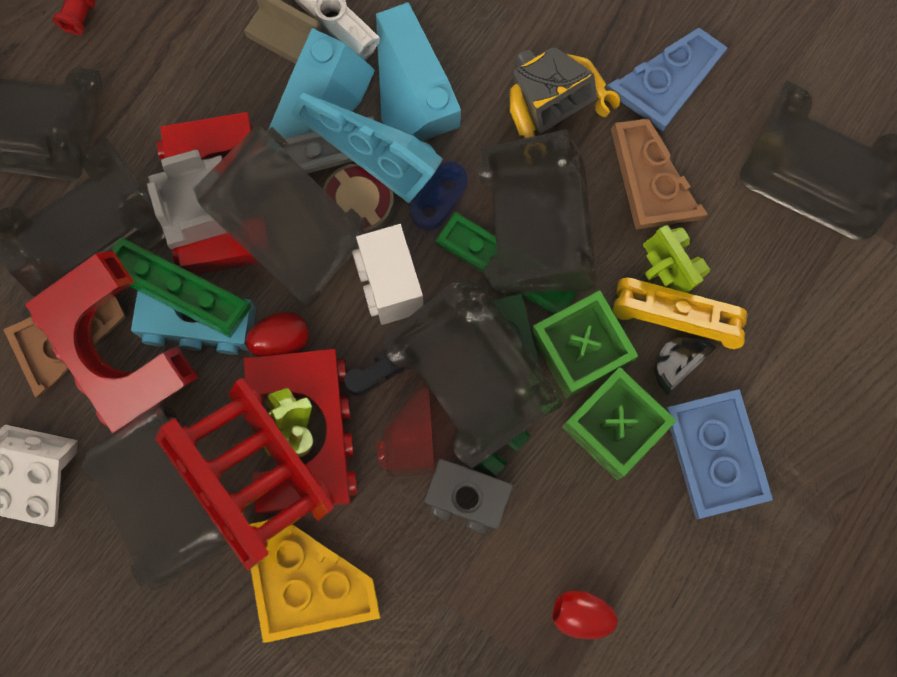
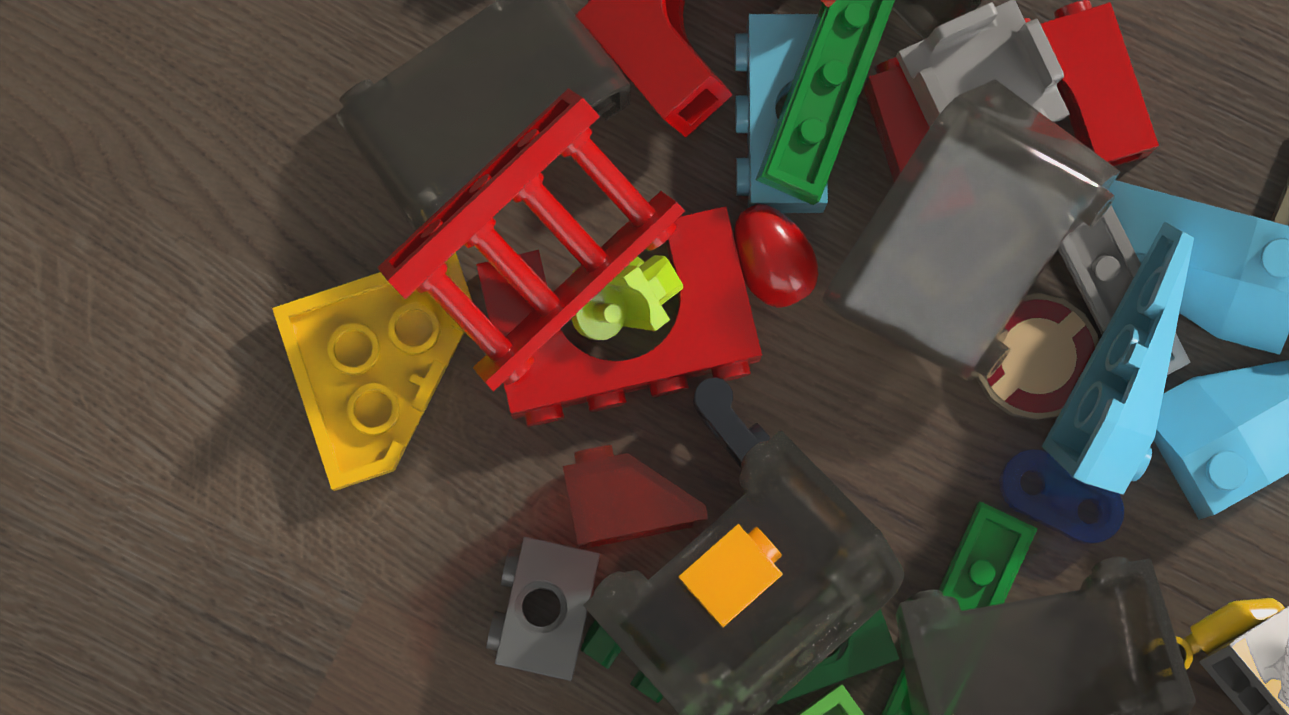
camera: 80 degrees right, 5 degrees up
(388, 267) = (901, 428): white brick -> none
(462, 378) = (733, 573): none -> light orange brick

